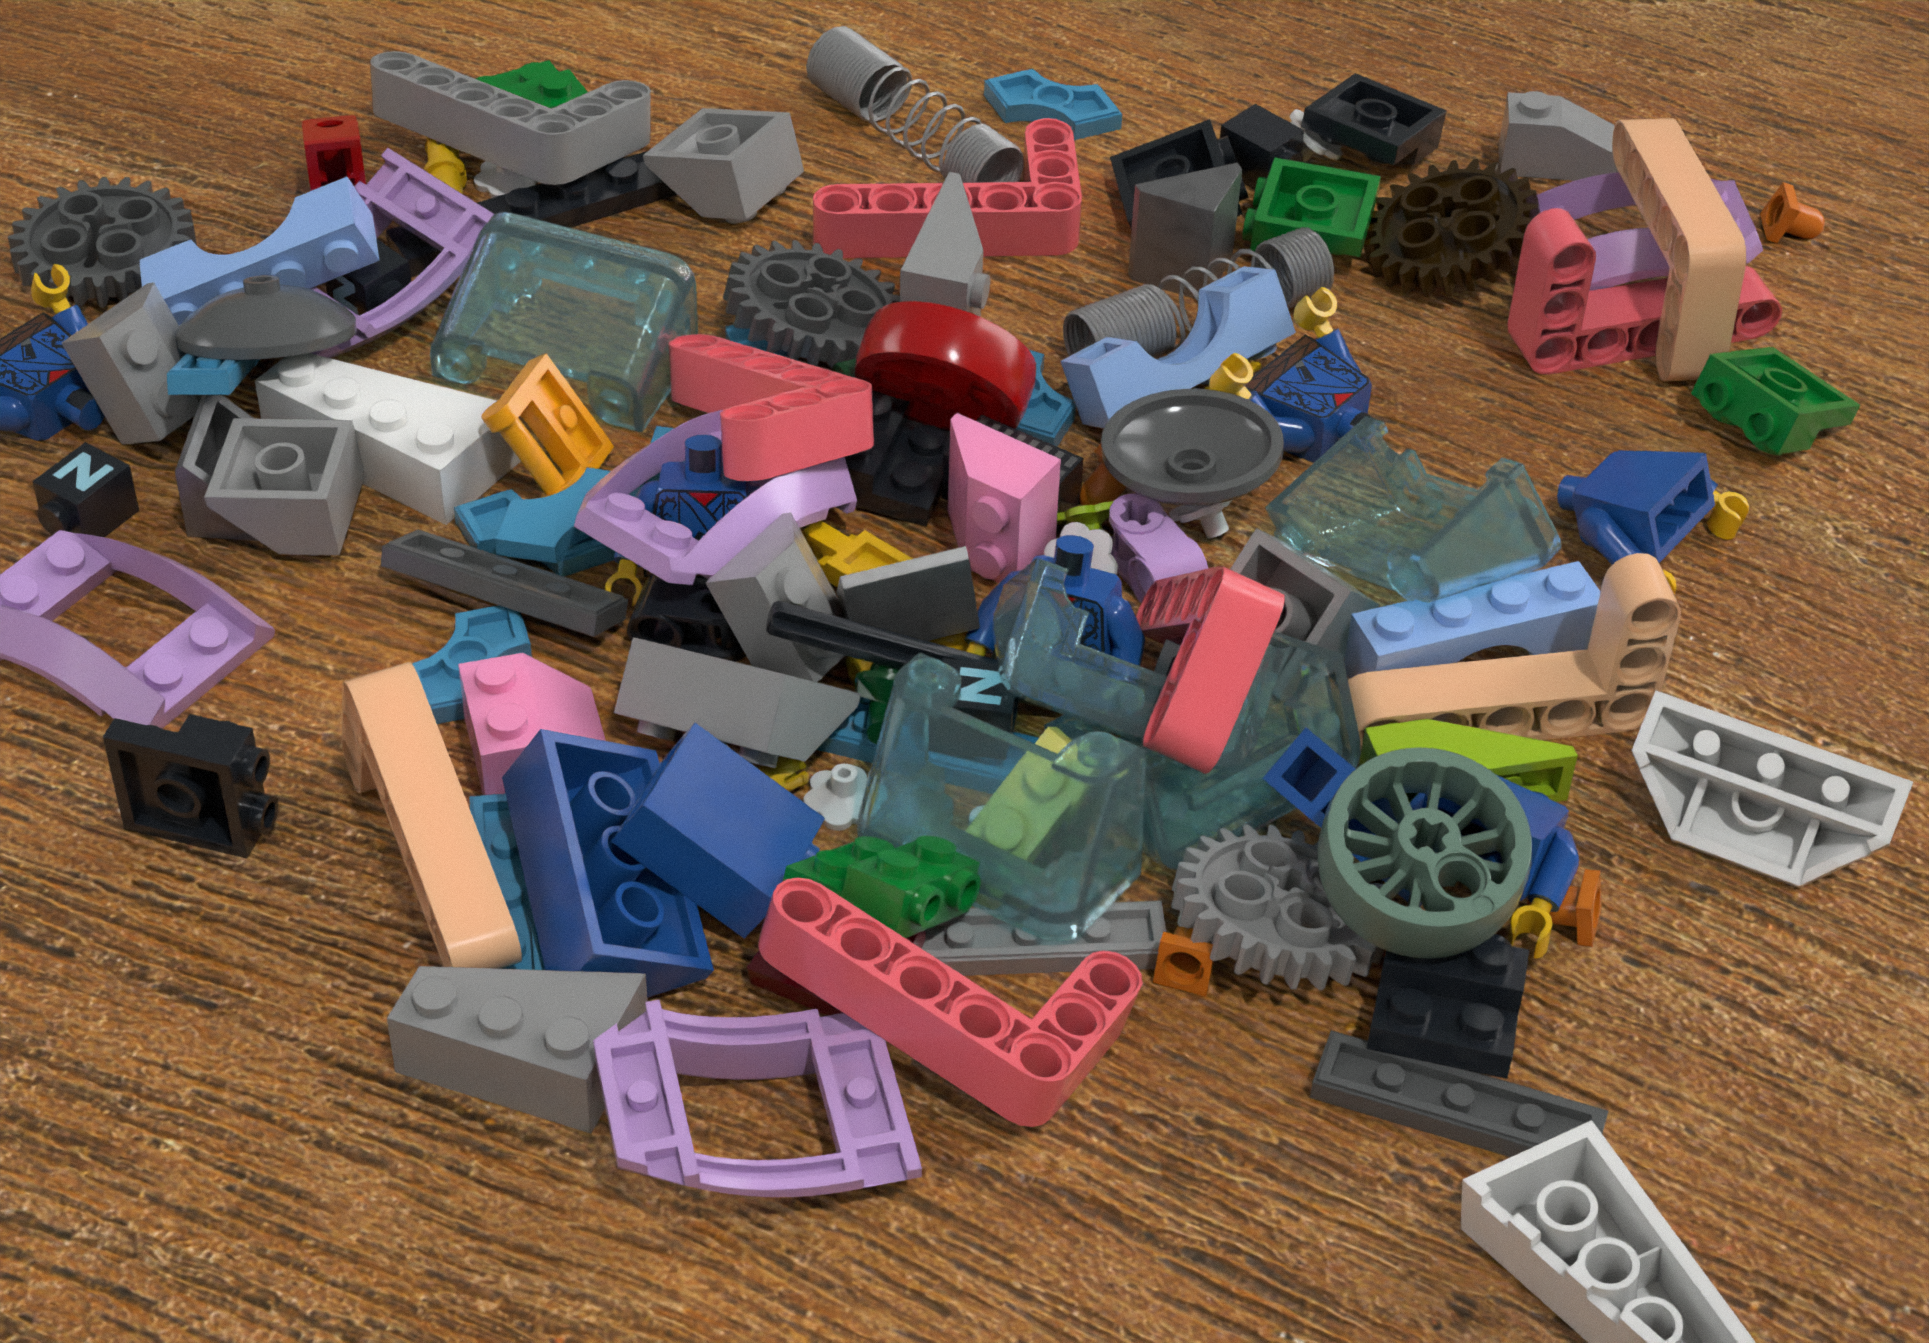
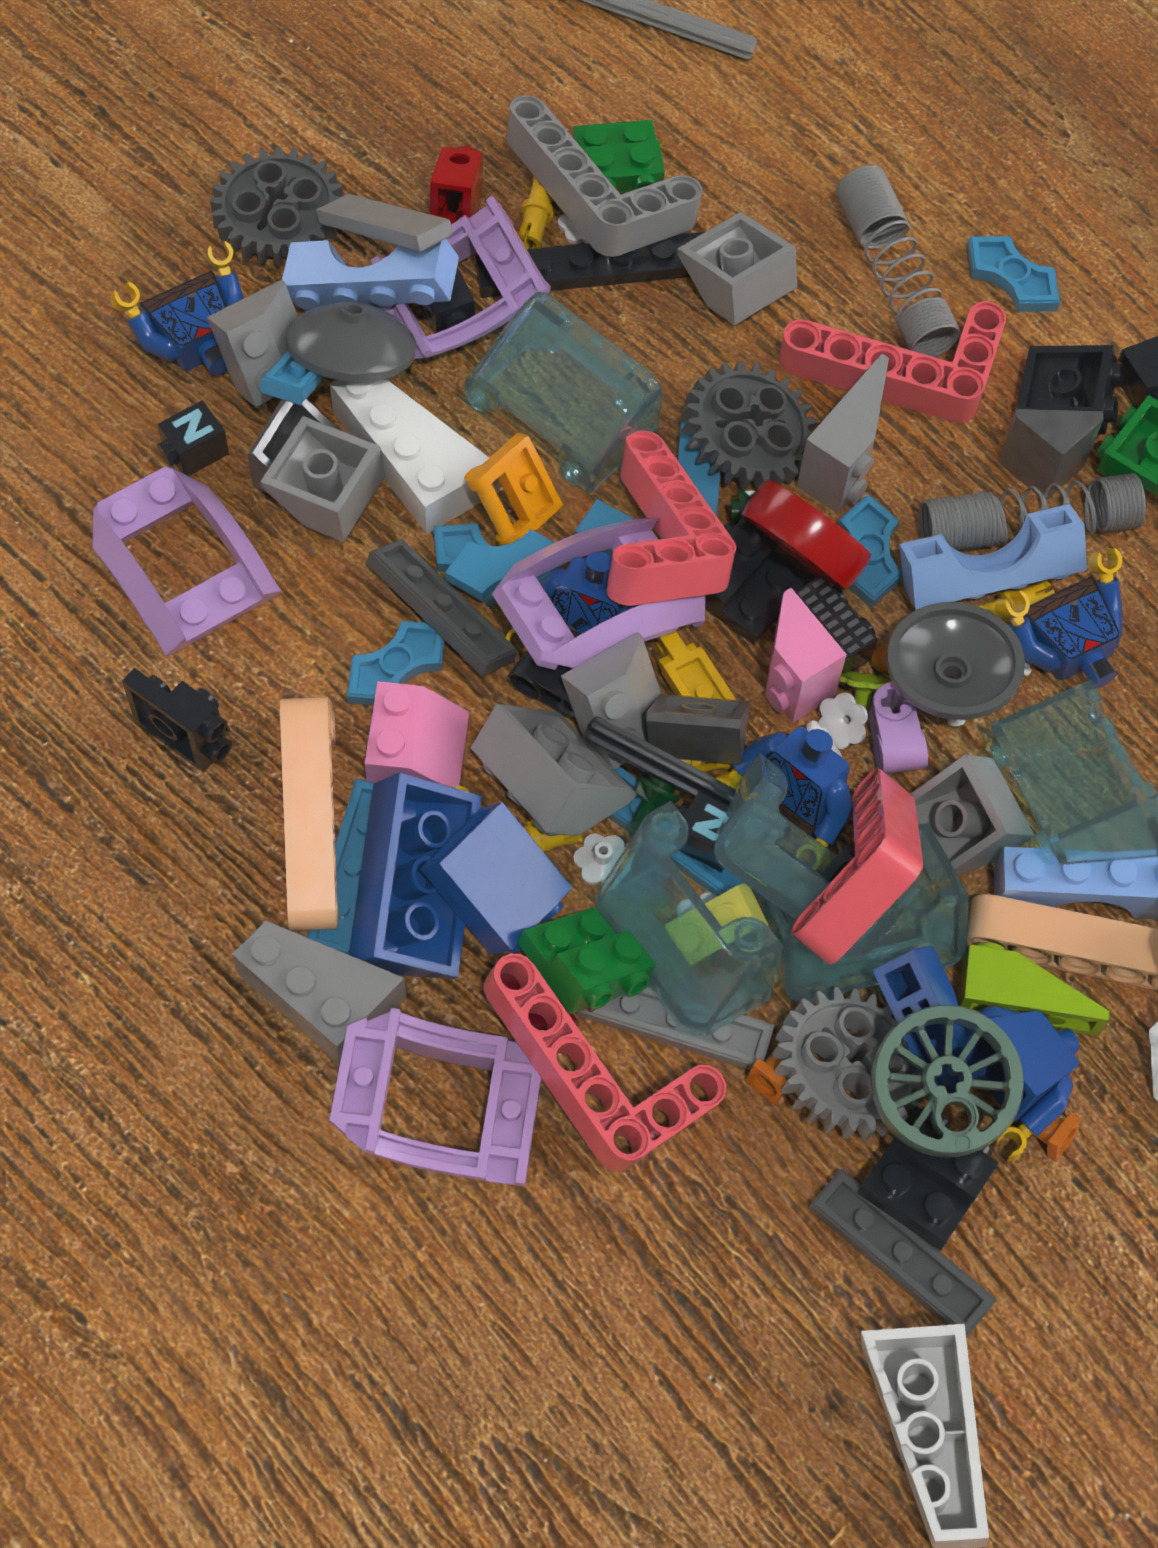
camera: 20 degrees right, 20 degrees up
(262, 194) = (385, 222): none -> light grey tile

